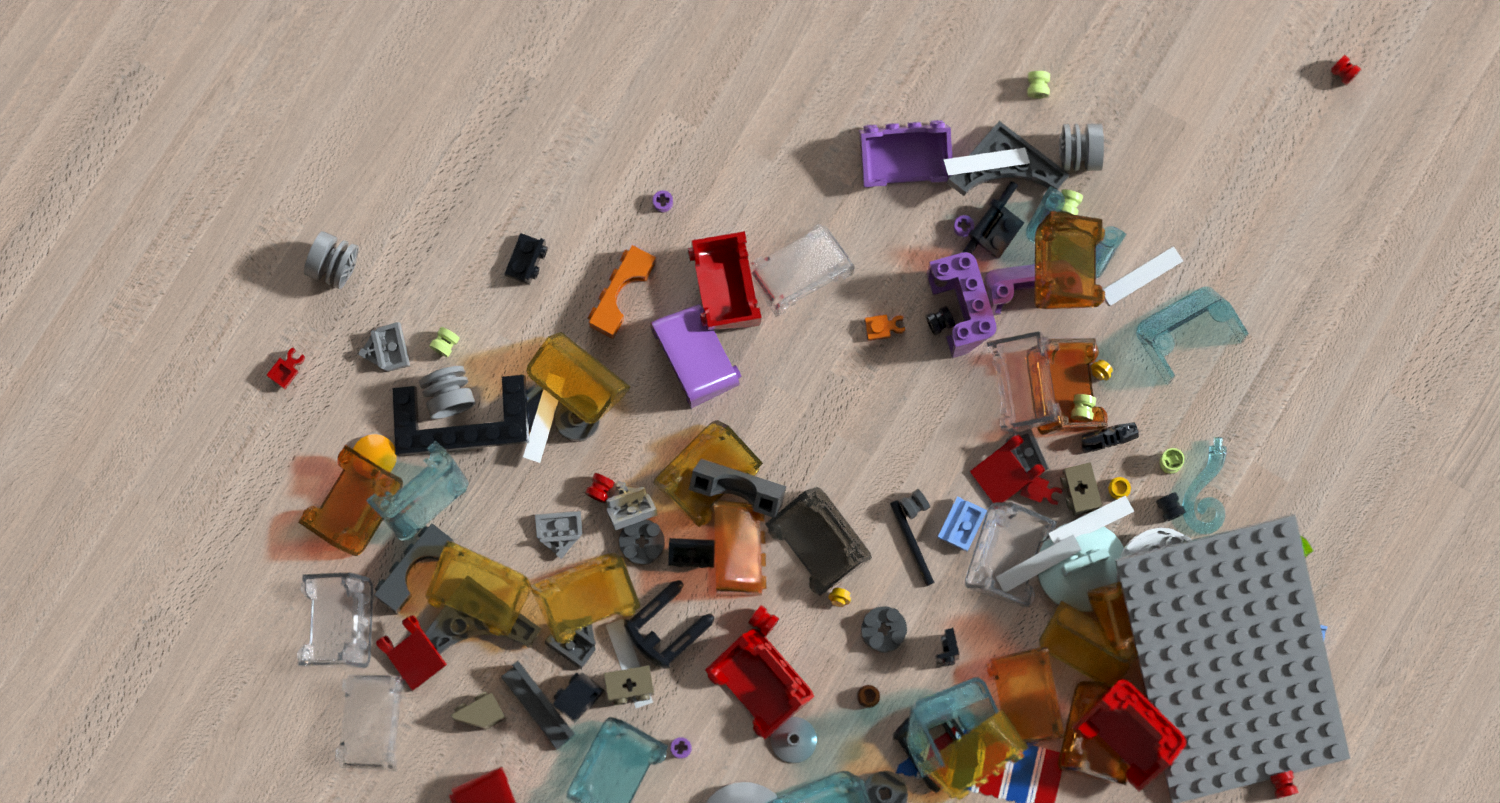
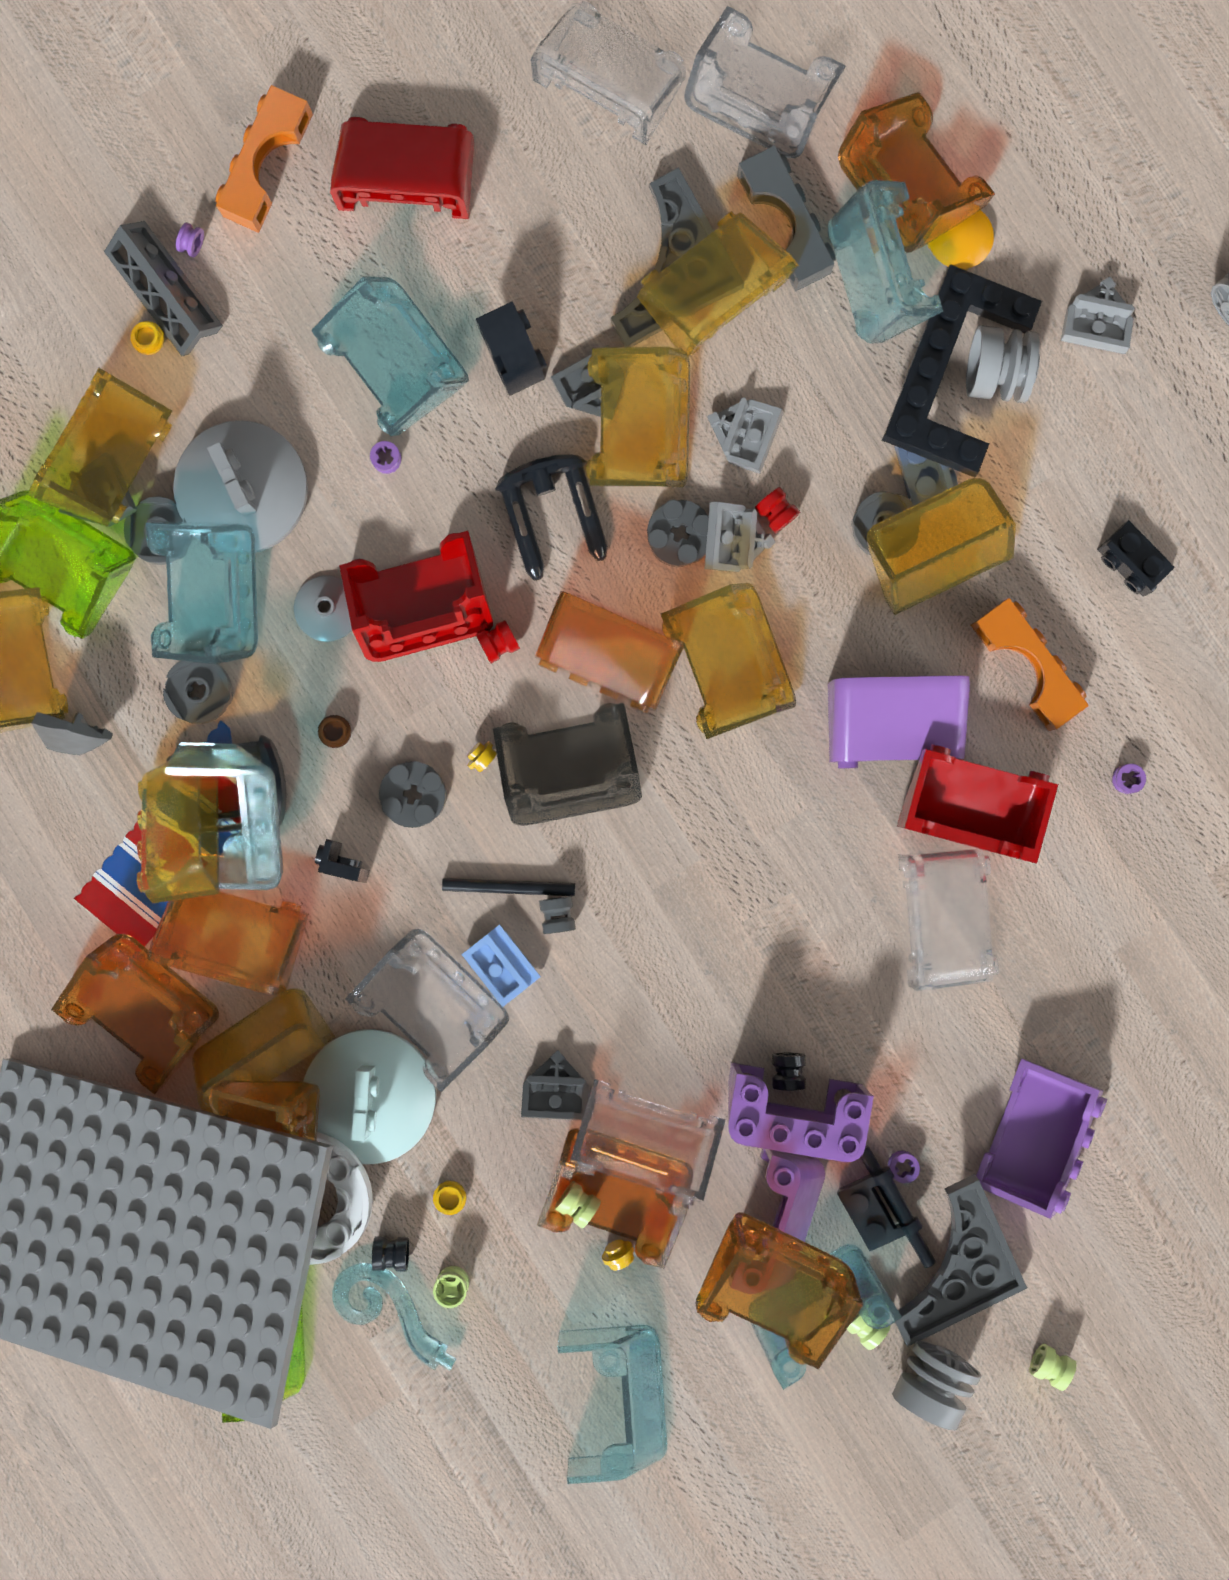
camera: 120 degrees right, 10 degrees up
(284, 371) = (1132, 169): red plate -> none
(413, 657) = (672, 163): red flag -> none
(444, 345) = (1068, 390): yellowish green wheel -> none
(481, 713) = (550, 217): dark tan slope -> none
(538, 705) = (533, 296): dark grey fence -> none
(541, 427) = (893, 467): white sticker -> none
(617, 679) = (498, 445): dark tan brick -> none
(625, 653) = (526, 442): white sticker -> none
(691, 553) = (632, 585): black bracket -> none
(714, 479) = (717, 661): dark grey arch -> none
(879, 327) = (818, 985): orange plate -> none
(986, 161) = (978, 1243): white sticker -> none
(1003, 474) = (541, 1052): red flag -> none
(1038, 489) = (500, 1088): red plate -> none
(1038, 563) = (397, 1040): white sticker -> none
(1083, 476) = (454, 1153): dark tan brick -> none
(1093, 520) = (419, 1138): white sticker -> none
(1109, 437) = (523, 1219): black hinge -> none
(1134, 732) = (101, 1059): red windscreen -> none
(1142, 275) = (722, 1379): white sticker -> none

